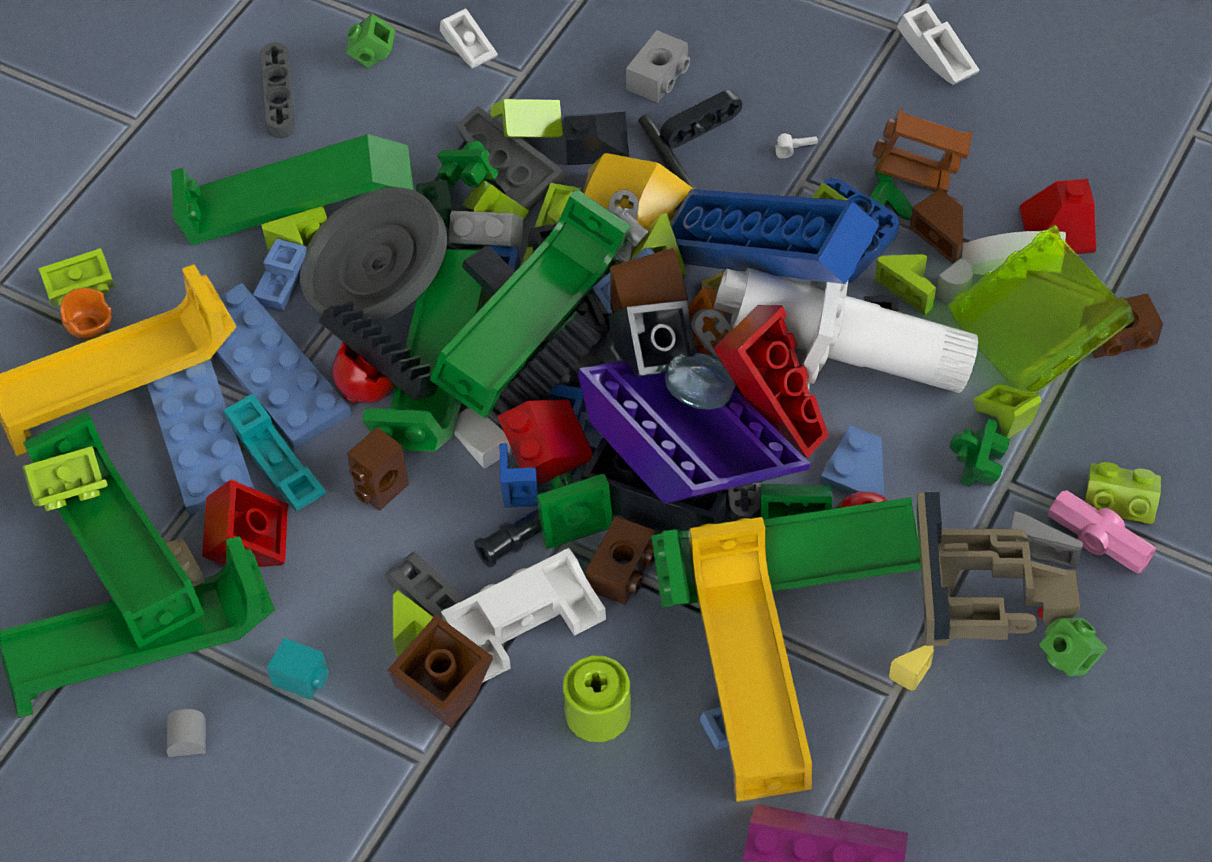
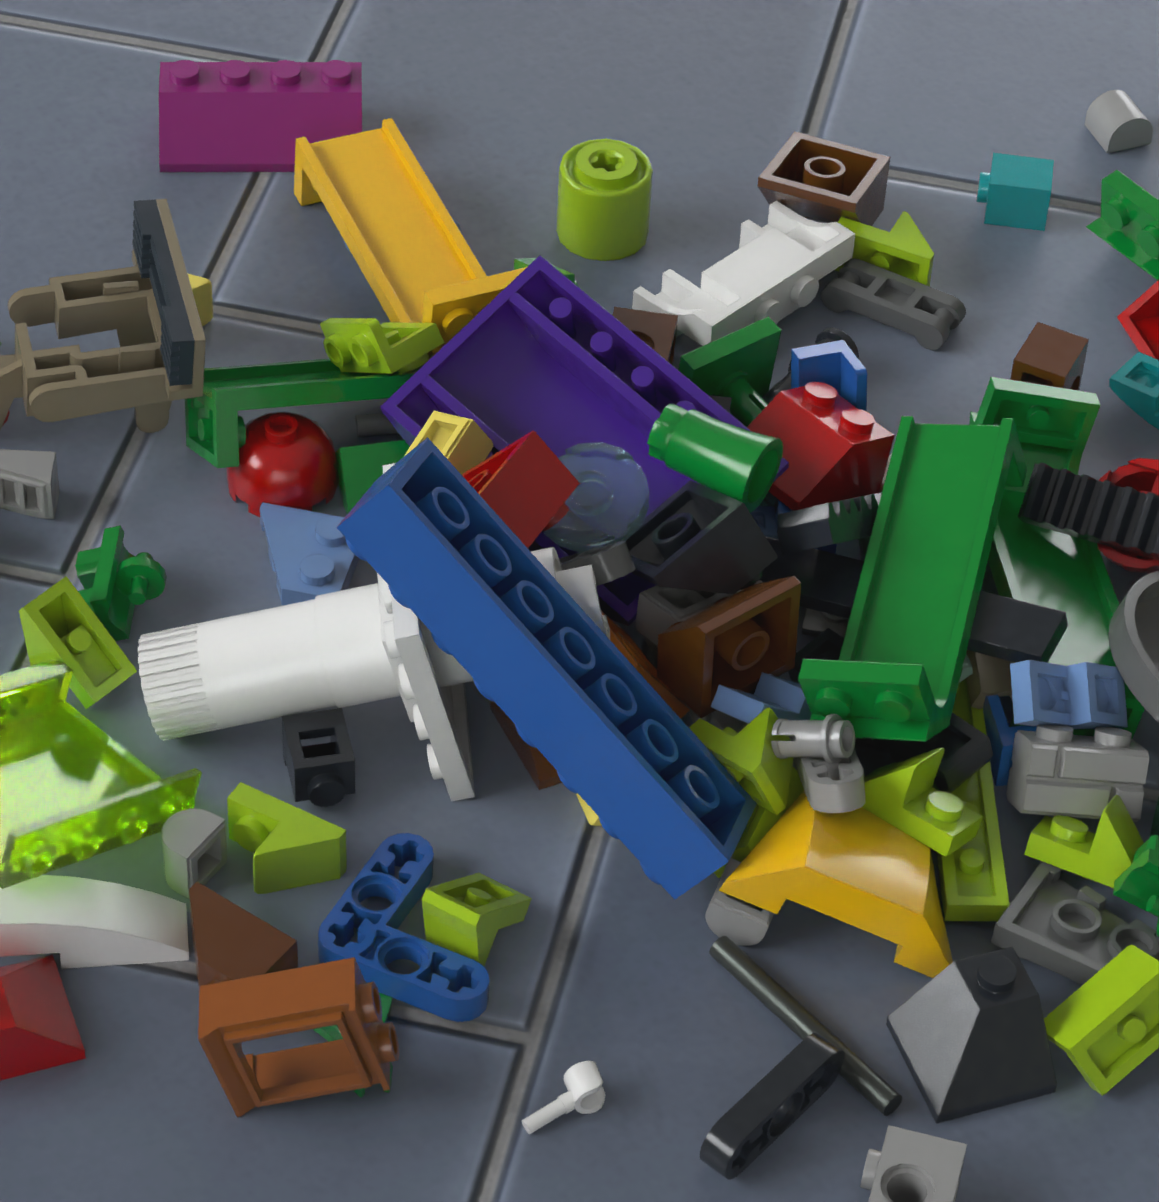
camera: 160 degrees right, 10 degrees down
(474, 239) = (1070, 695): none -> medium blue slope
(623, 360) = (716, 453): none -> green plant
(776, 428) = (457, 440): none -> light yellow slope
(795, 544) = (375, 348): none -> lime bracket

